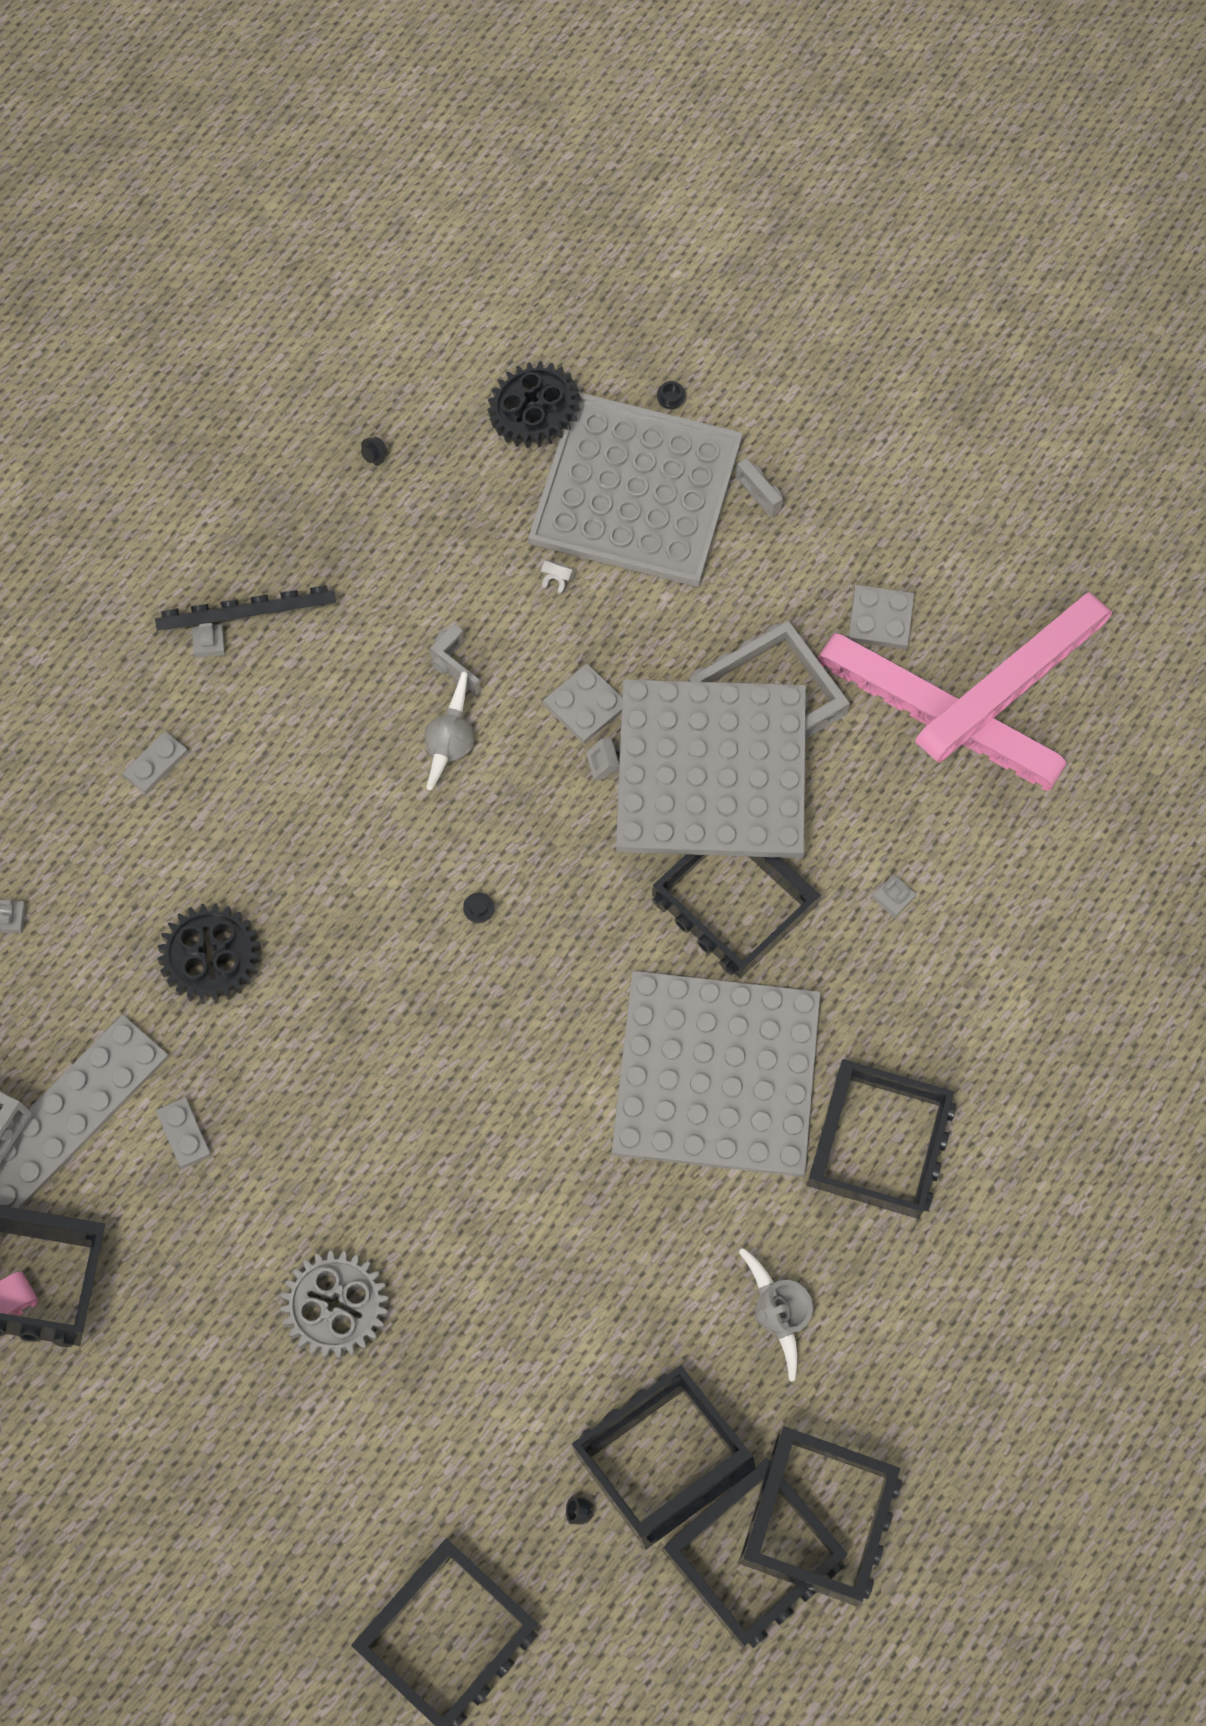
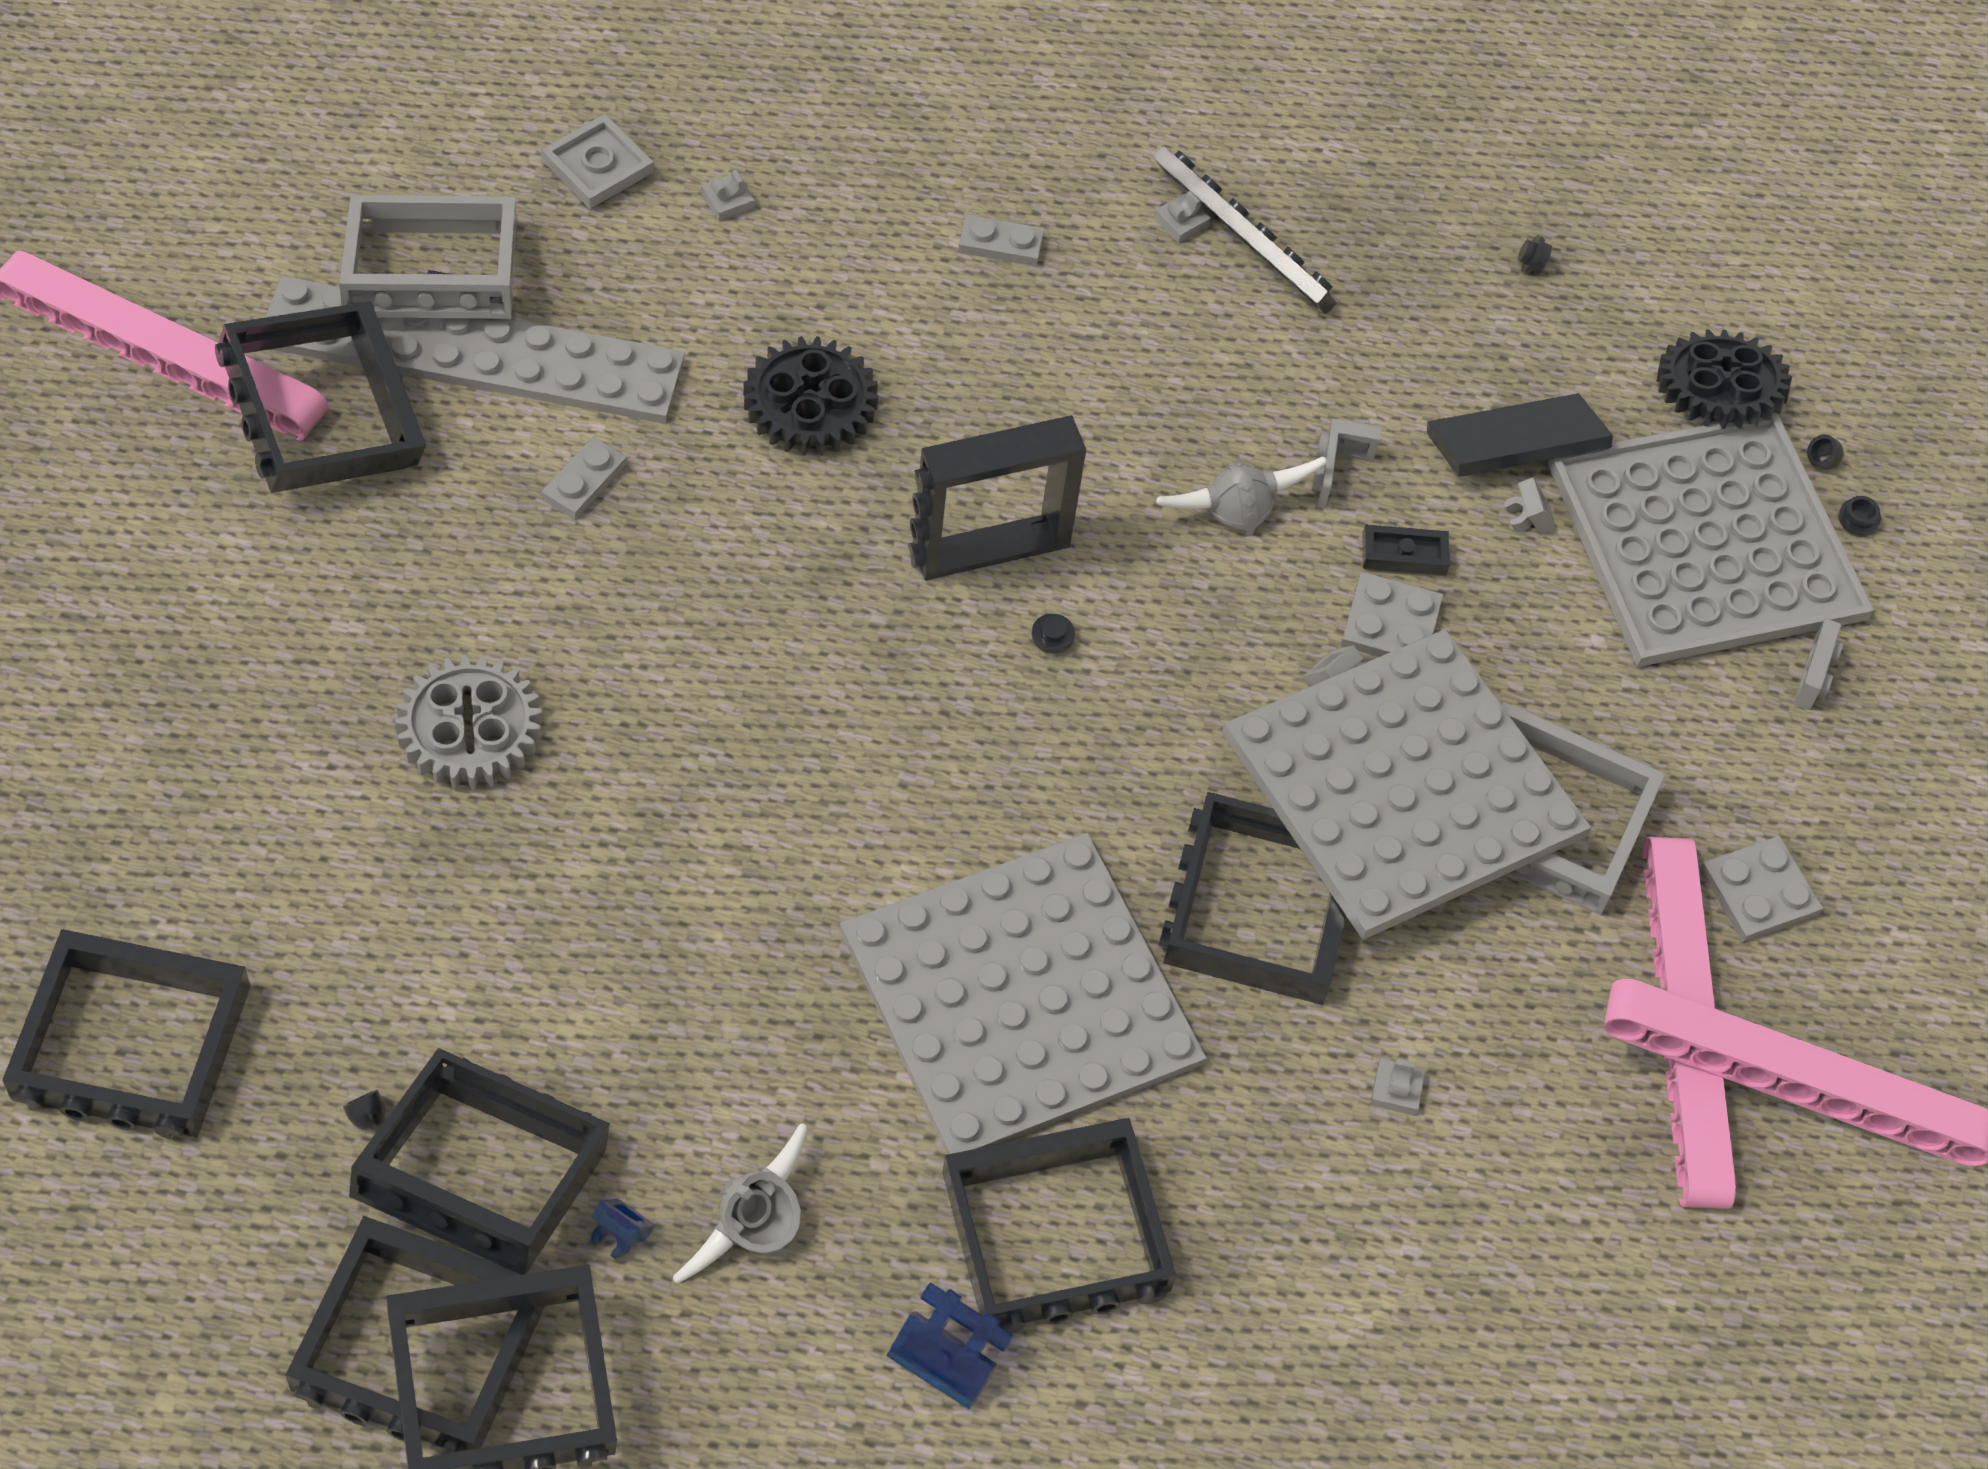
camera: 55 degrees right, 10 degrees down
(385, 885) = (990, 456): none -> black window
(501, 547) = (1519, 434): none -> black tile
(542, 664) = (1405, 549): none -> black plate
(611, 382) = (1823, 446): none -> black hinge
(743, 1392) = (623, 1223): none -> clear blue tile
(930, 1251) = (941, 1357): none -> clear blue plate

